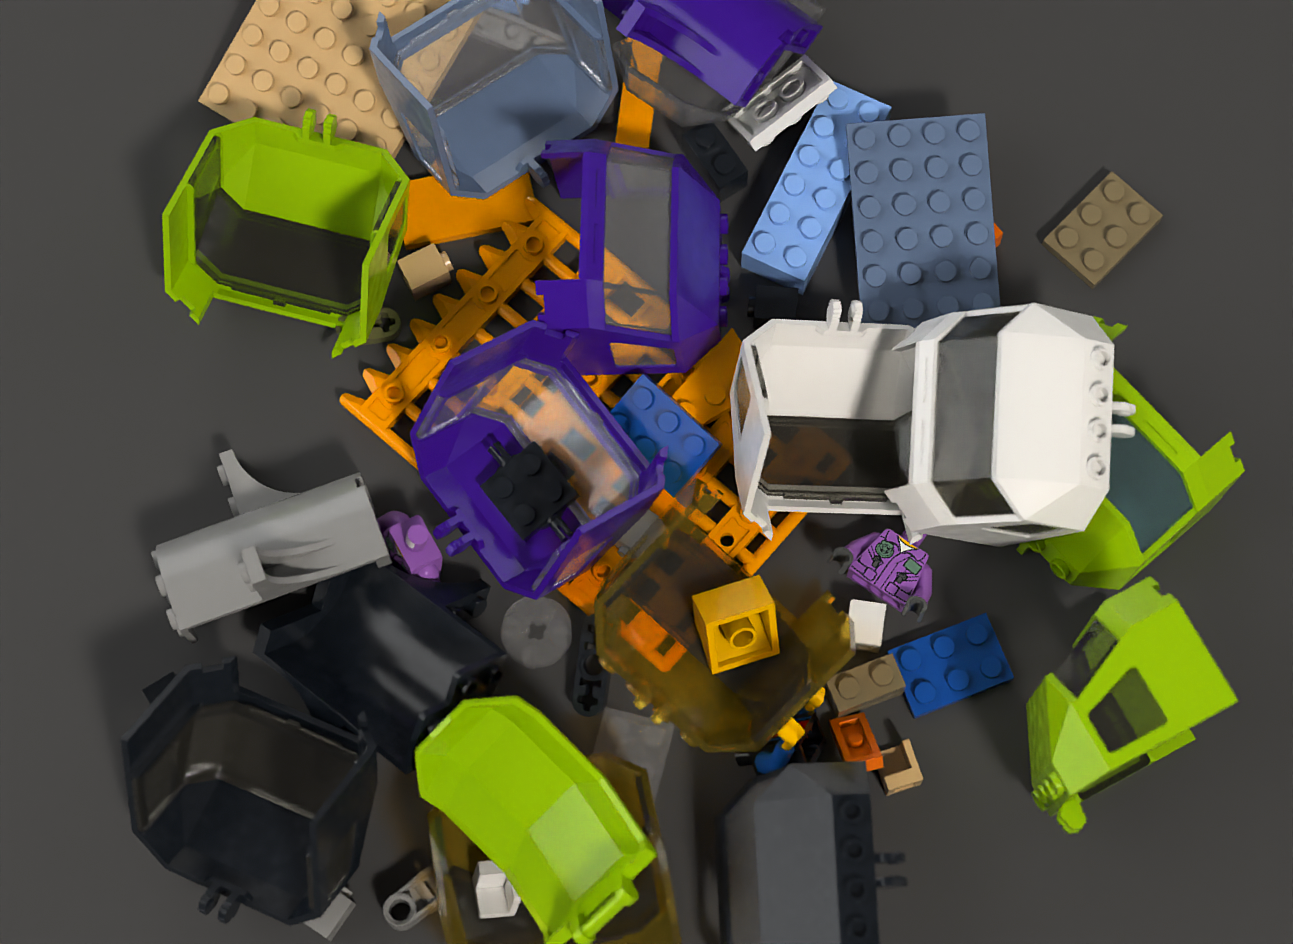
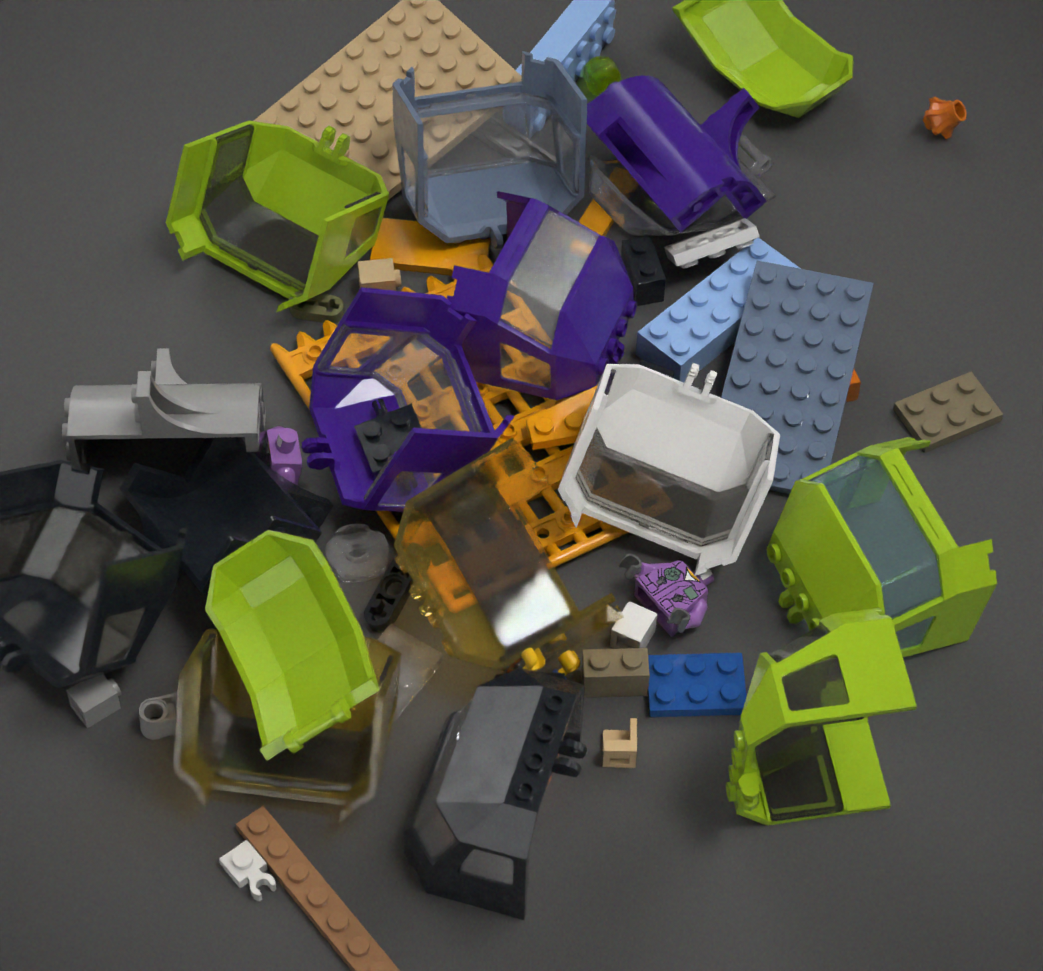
camera: 15 degrees right, 20 degrees down
(493, 891) = (238, 719): white panel -> none
(657, 420) = (526, 426): blue plate -> none
(736, 624) = (523, 586): yellow slope -> none
(856, 740) = (594, 711): orange plate -> none
(1009, 424) = (800, 491): white windscreen -> none

